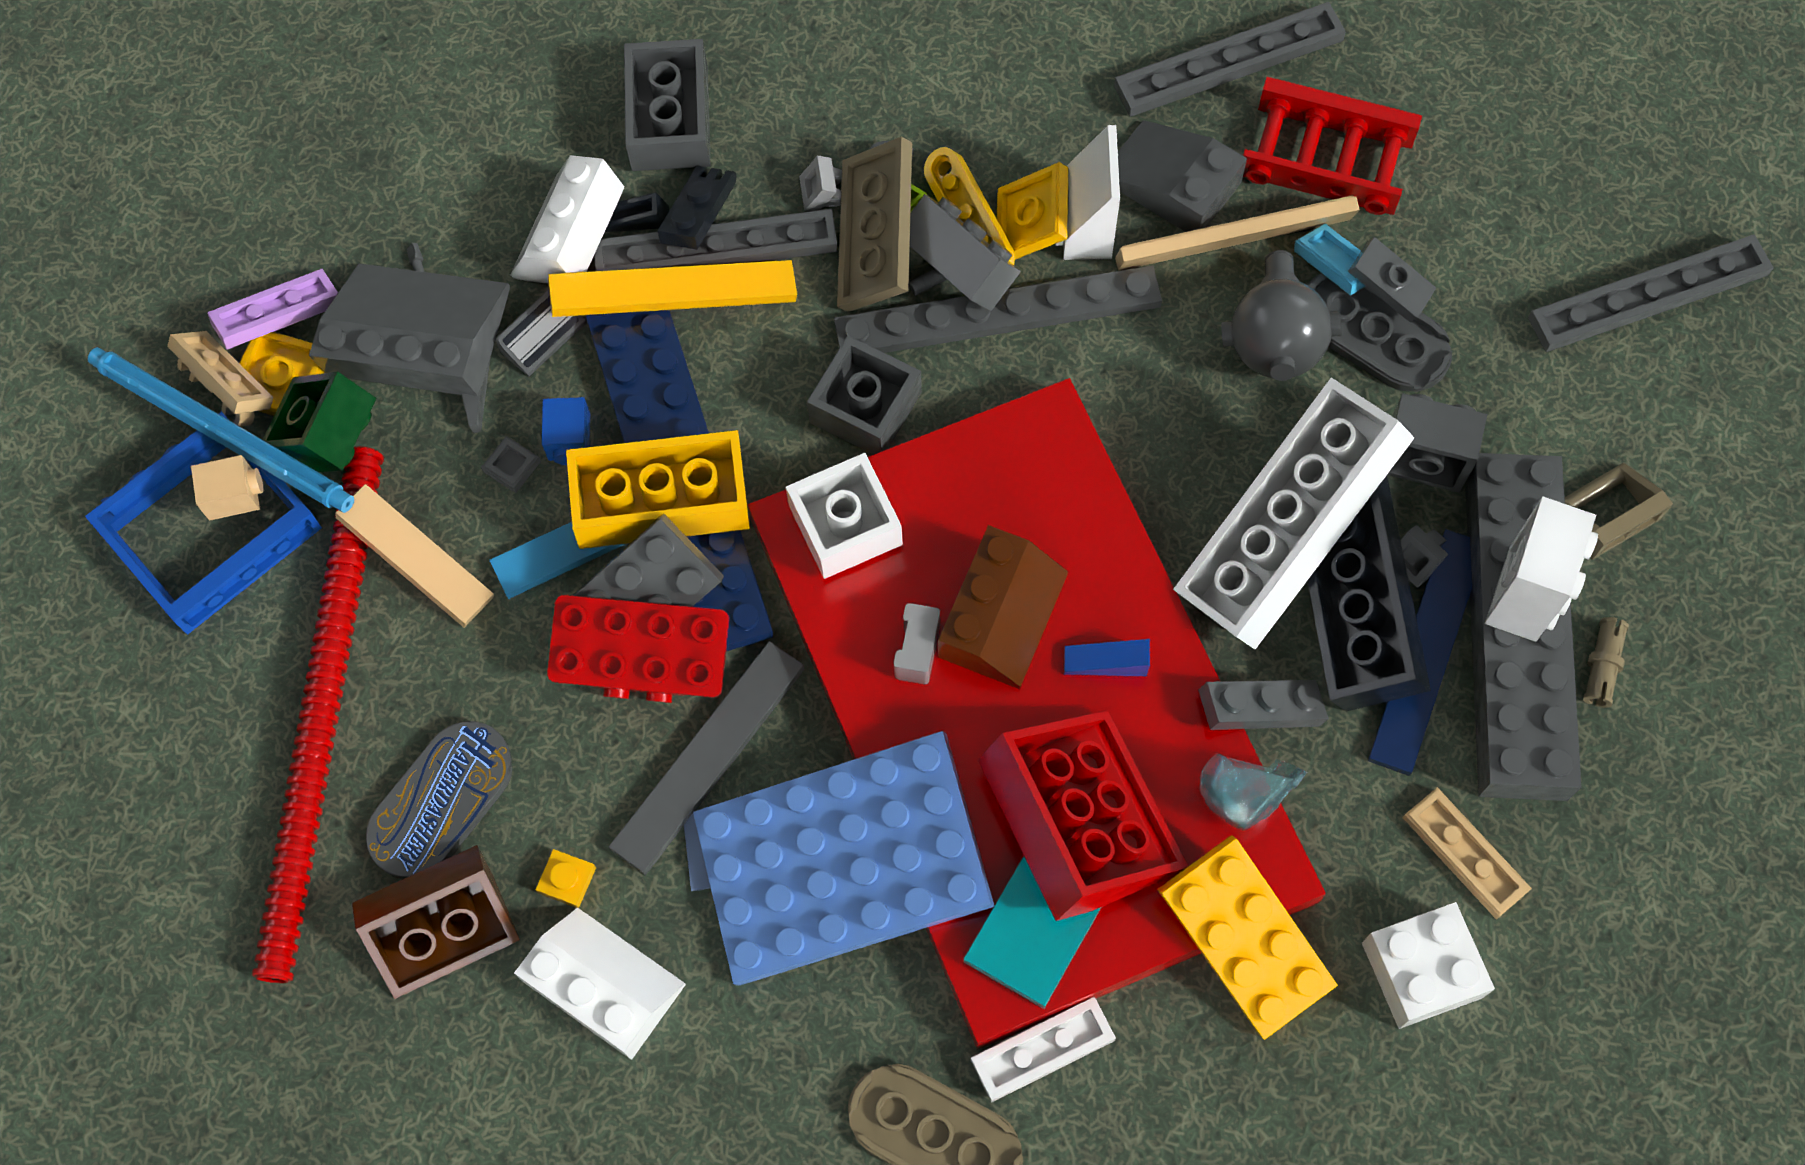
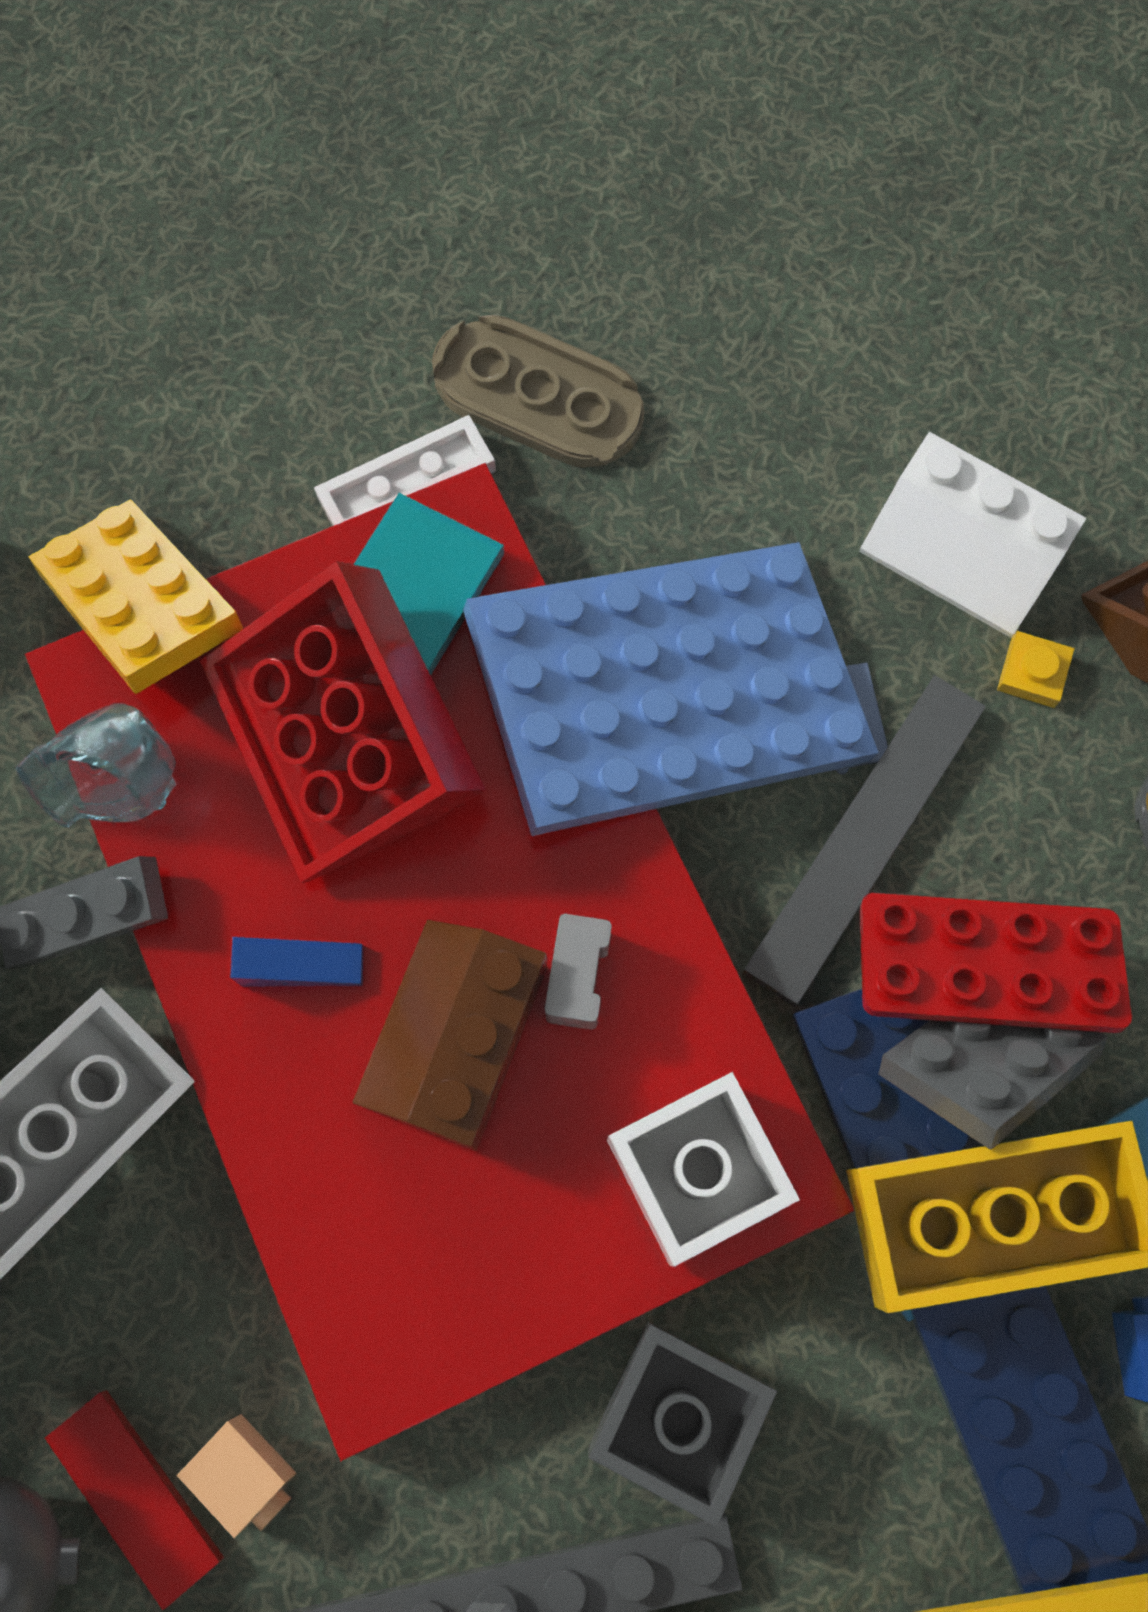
camera: 175 degrees right, 5 degrees up
(1132, 378) = (239, 1477): none -> light nougat brick
(1197, 372) = (134, 1499): none -> red tile

